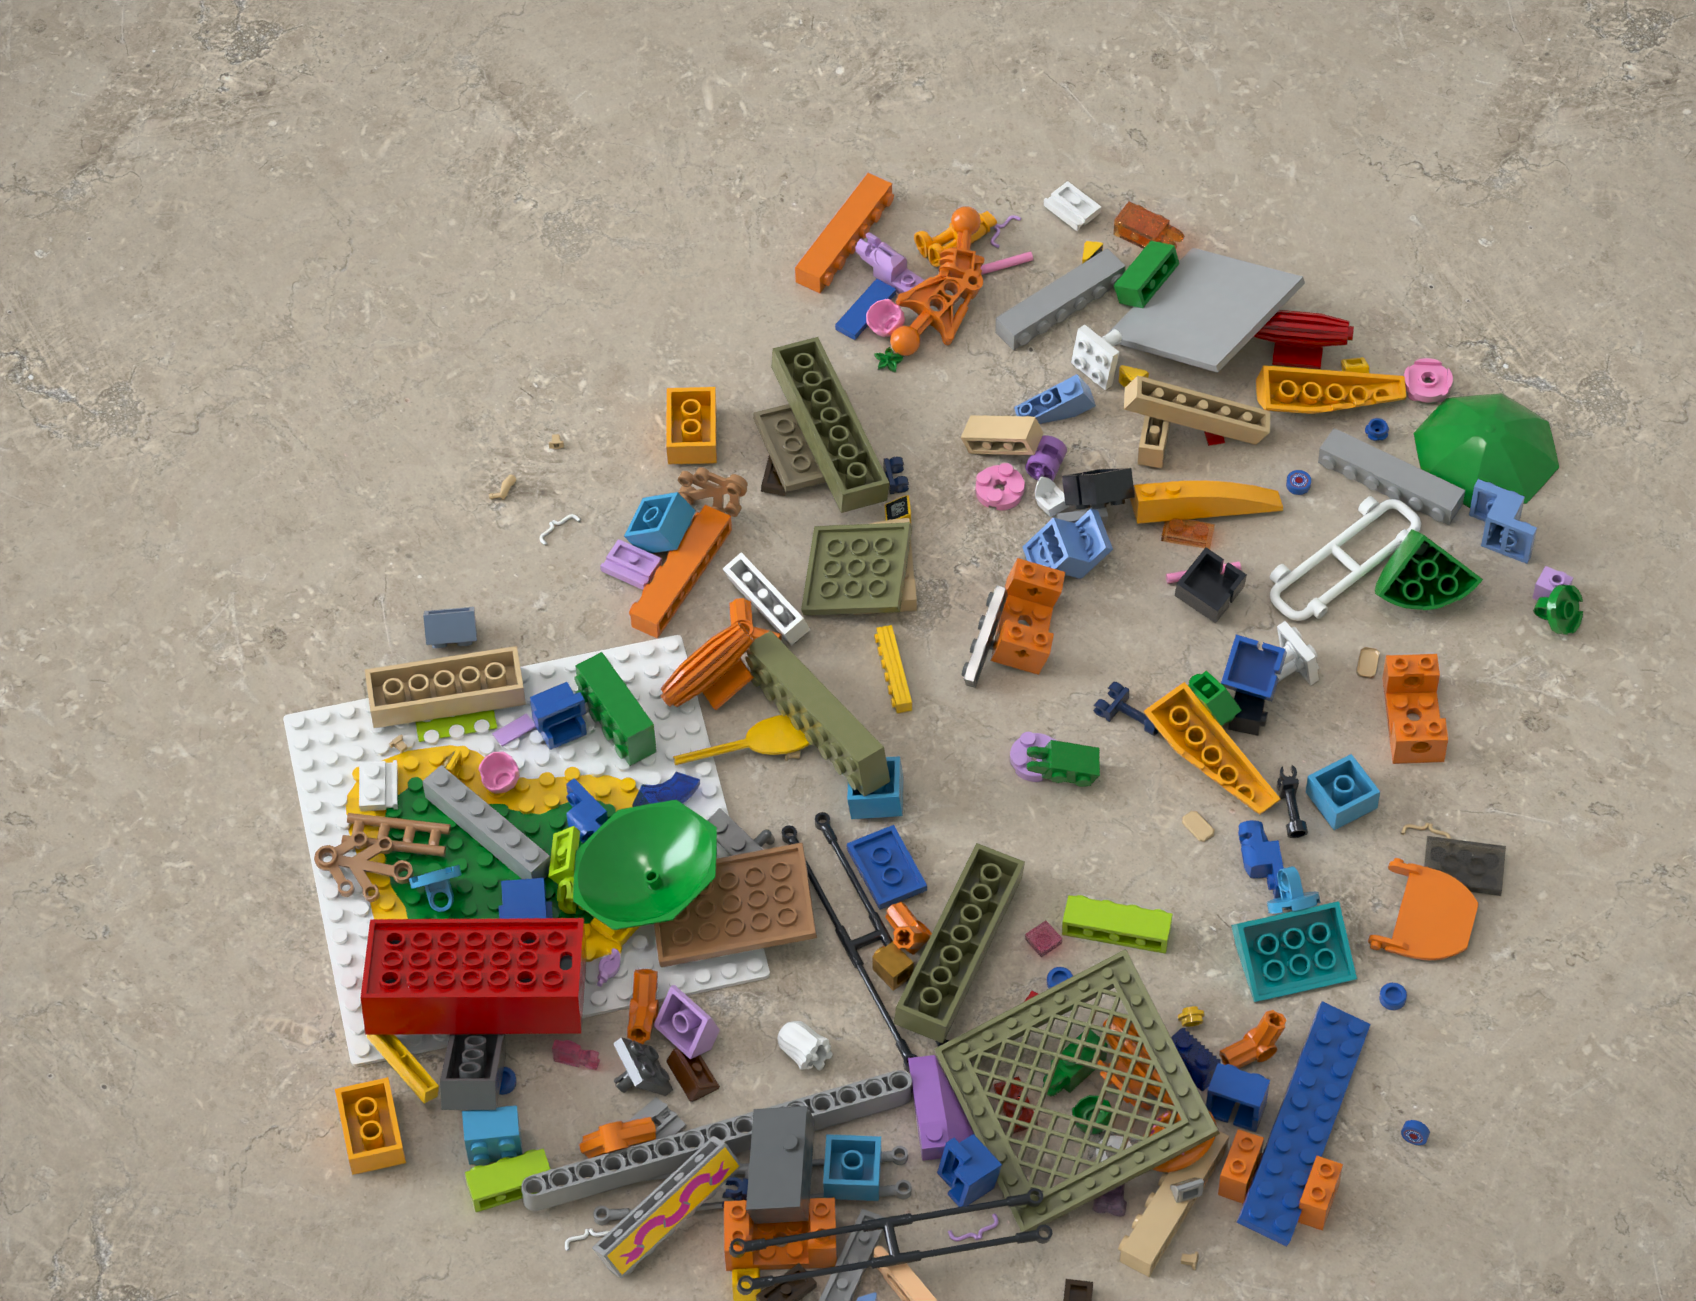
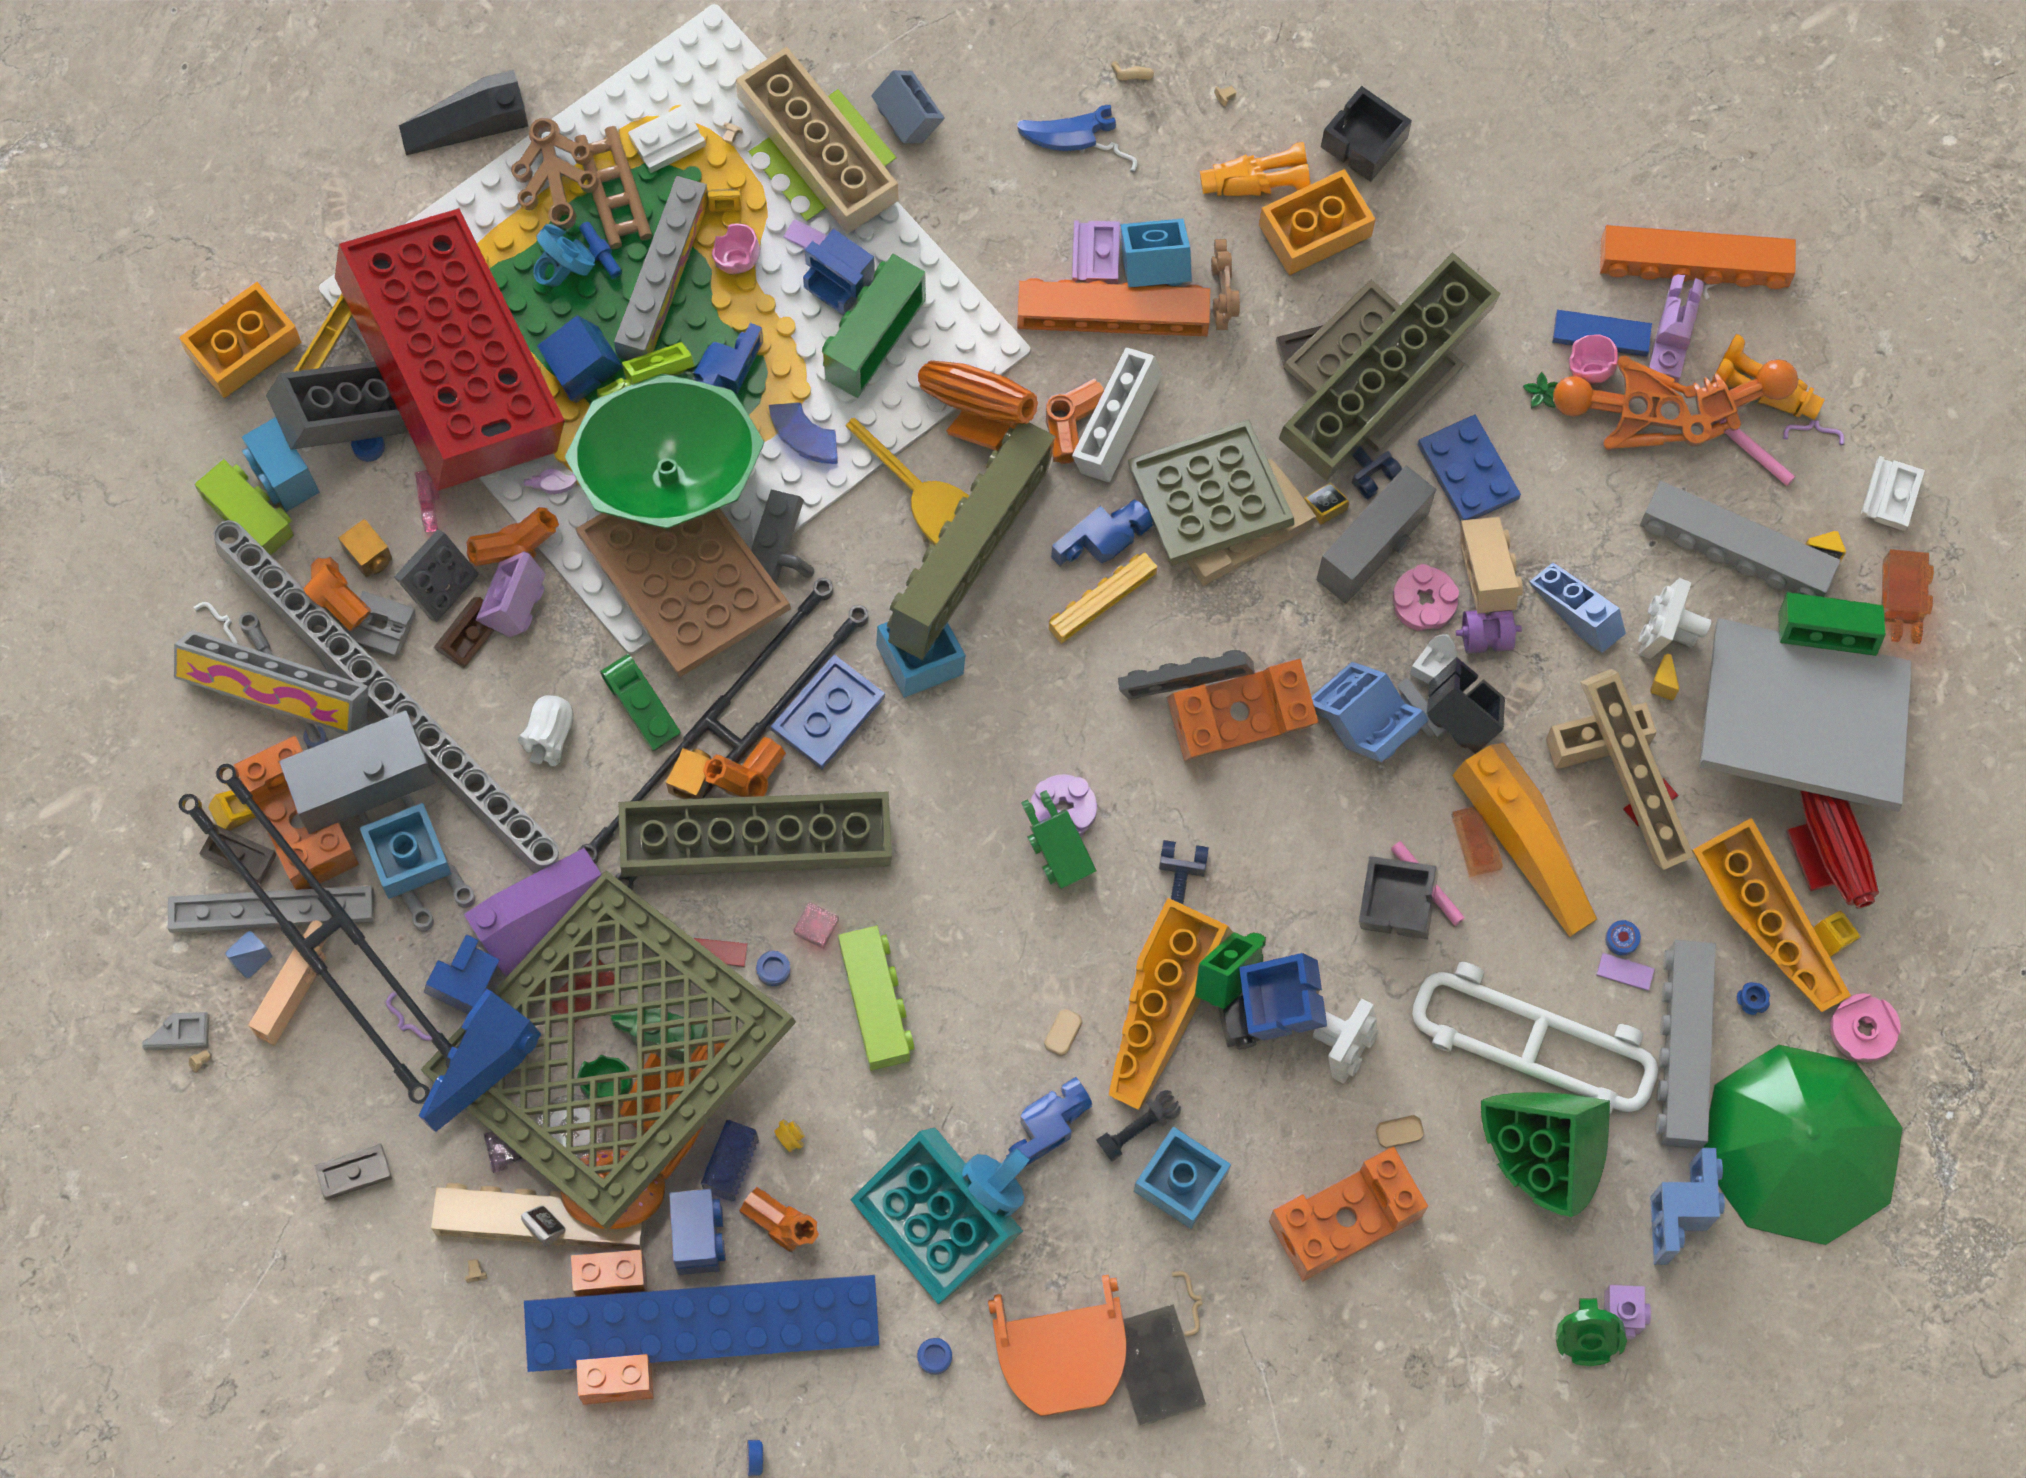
camera: 60 degrees right, 15 degrees up
(271, 904) = (475, 112): none -> black wedge
(442, 861) = (600, 250): none -> blue bar
(527, 545) = (1068, 133): none -> blue piece
(590, 1110) = (365, 548): none -> pearl gold brick
(628, 451) = (1246, 174): none -> light orange piece
(643, 369) = (1369, 135): none -> black piece
(811, 979) = (640, 702): none -> green plate
(848, 646) = (1103, 533): none -> blue plate
(920, 423) = (1469, 469): none -> blue plate
(944, 488) = (1376, 534): none -> dark grey brick
(1041, 1162) = (491, 1048): none -> blue wedge
(1321, 492) = (1625, 971): none -> lavender window

